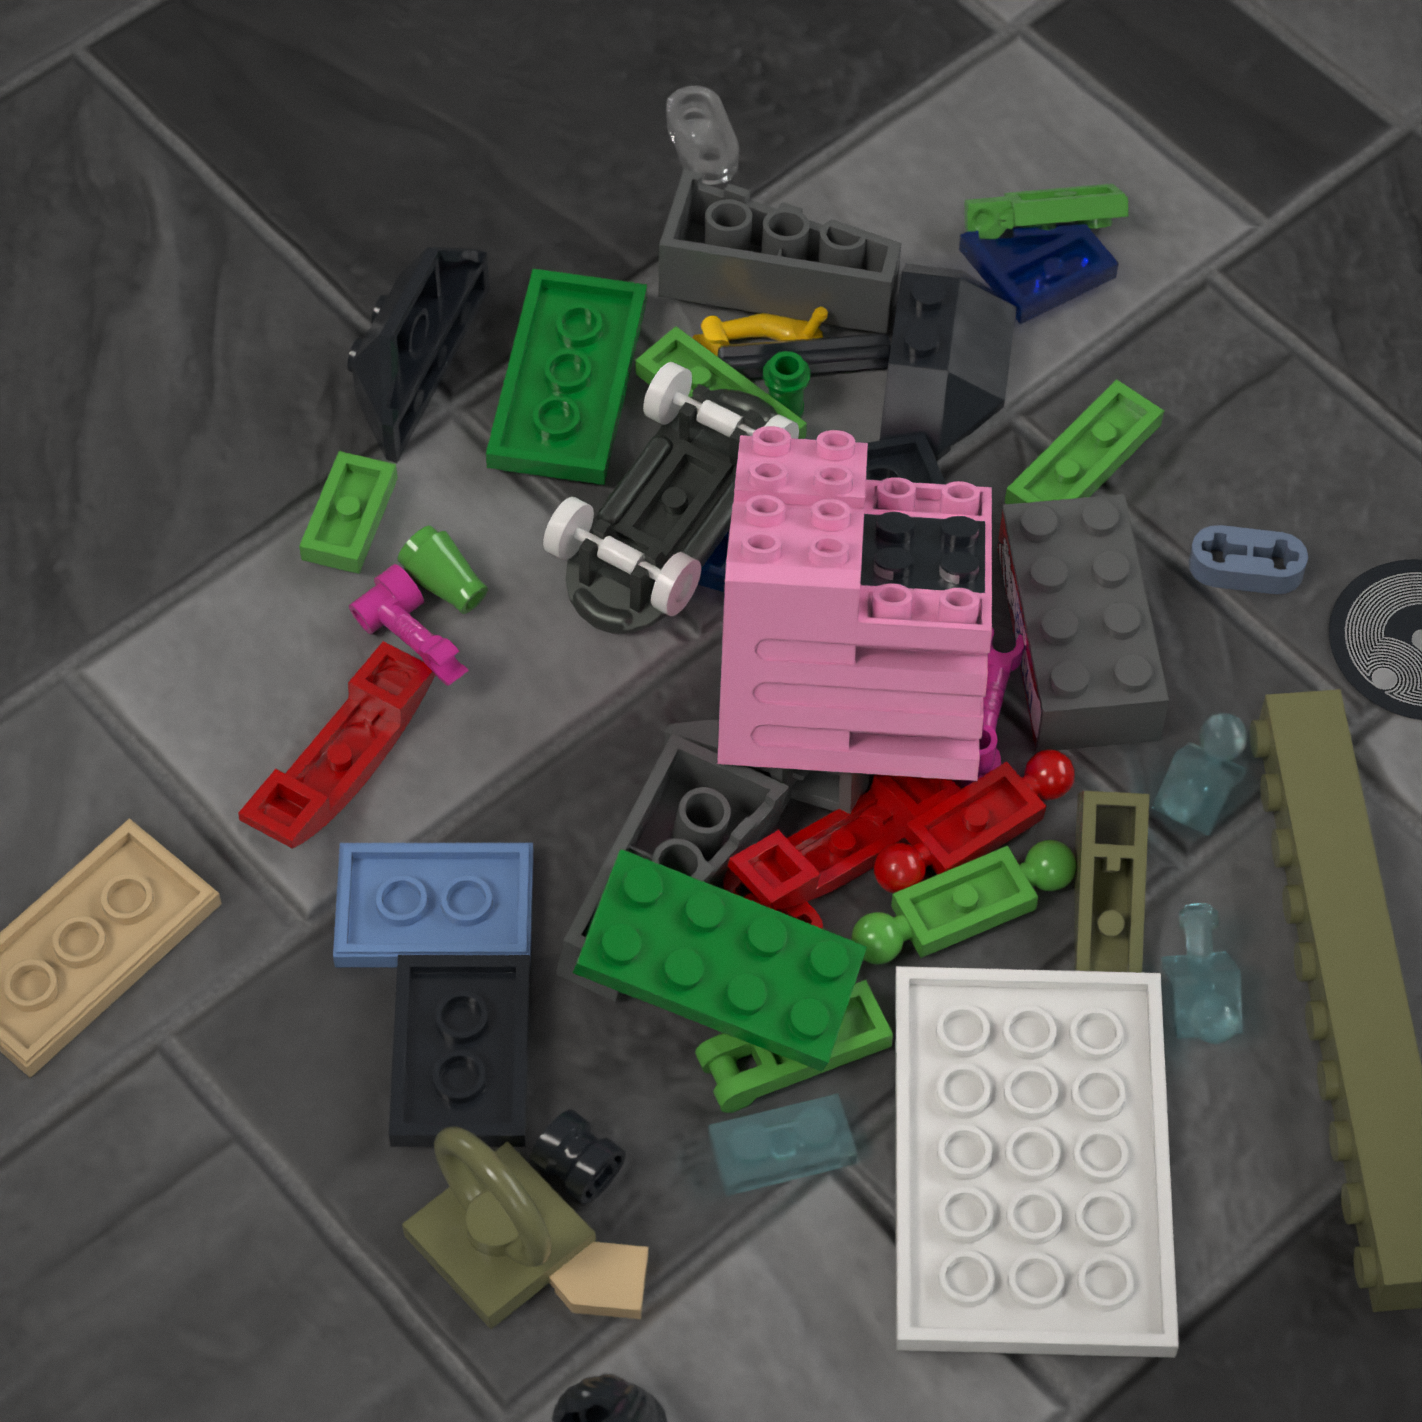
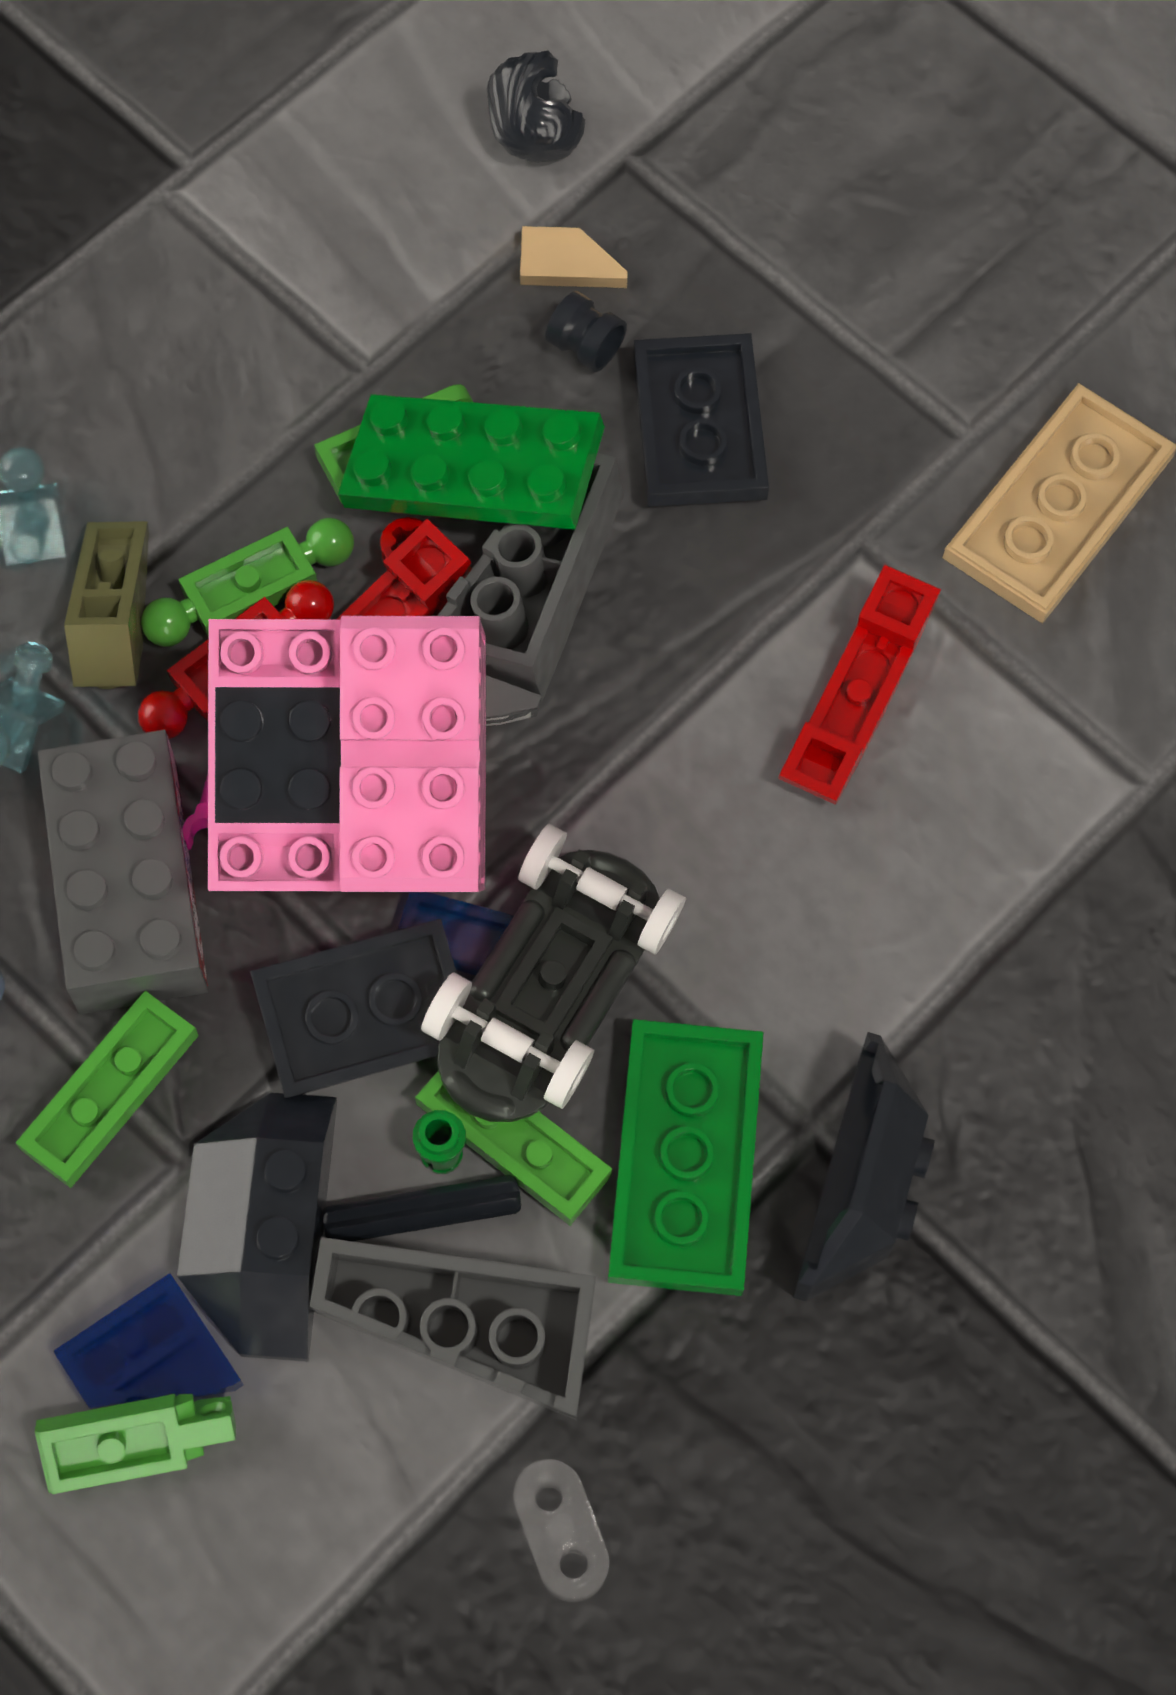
camera: 175 degrees right, 10 degrees up
(348, 512) = (899, 962): bright green plate -> none
(390, 605) = (841, 856): dark pink brick -> none
(432, 901) = (744, 561): medium blue tile -> none
(441, 568) = (792, 900): bright green cone -> none
(494, 1227) = (645, 266): olive tile -> none
(758, 326) = (528, 1230): yellow piece -> none
(782, 1144) = (412, 365): clear light blue plate -> none
(1032, 1163) = (192, 364): white plate -> none

